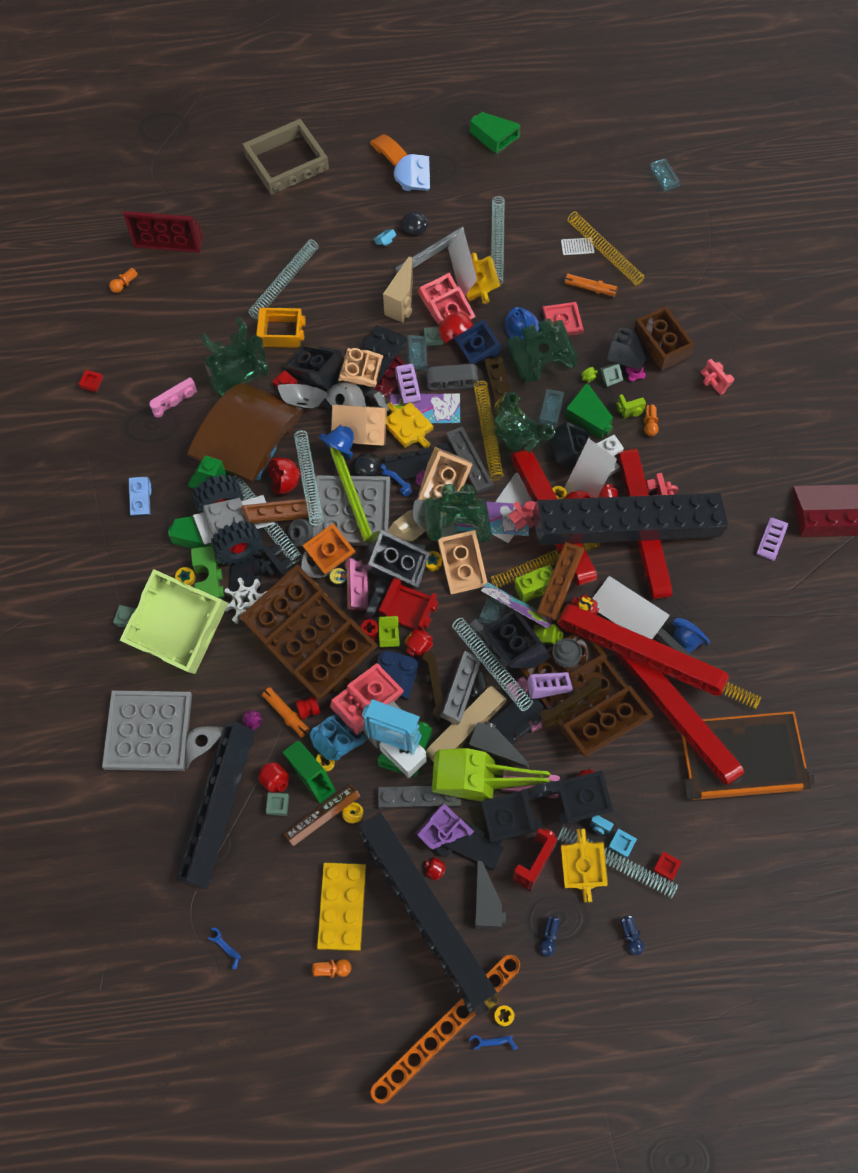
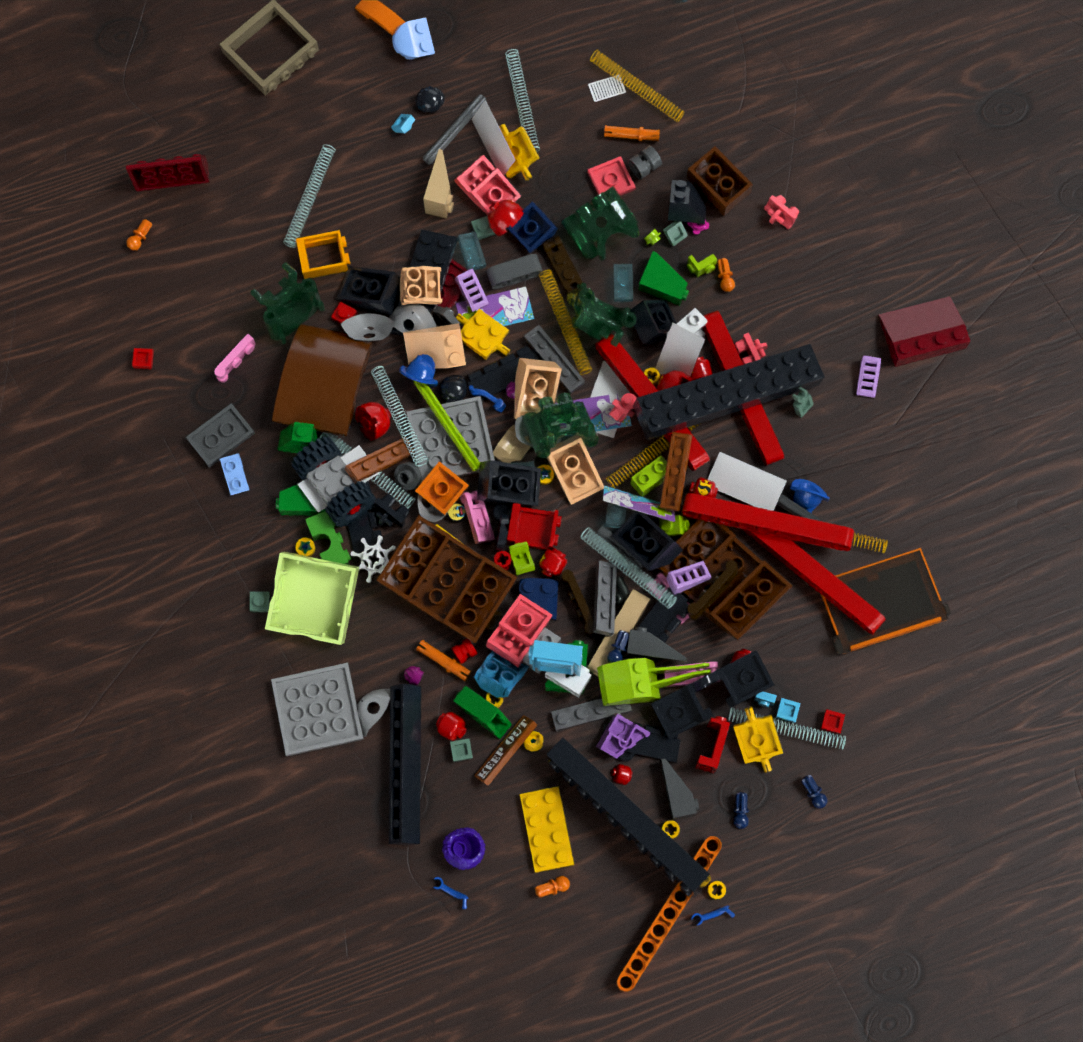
camera: 15 degrees left, 10 degrees up
(138, 460) = (220, 435): none -> dark grey plate
(249, 904) = (463, 848): none -> dark purple hair
(462, 735) = (619, 645): none -> dark blue axle
(475, 934) = (674, 825): none -> yellow bush
(517, 320) = (570, 194): blue helmet -> none
(567, 652) = (698, 541): dark grey plate -> none
(597, 309) = (646, 161): none -> dark grey wheel
(702, 547) = (802, 402): none -> sand green plate

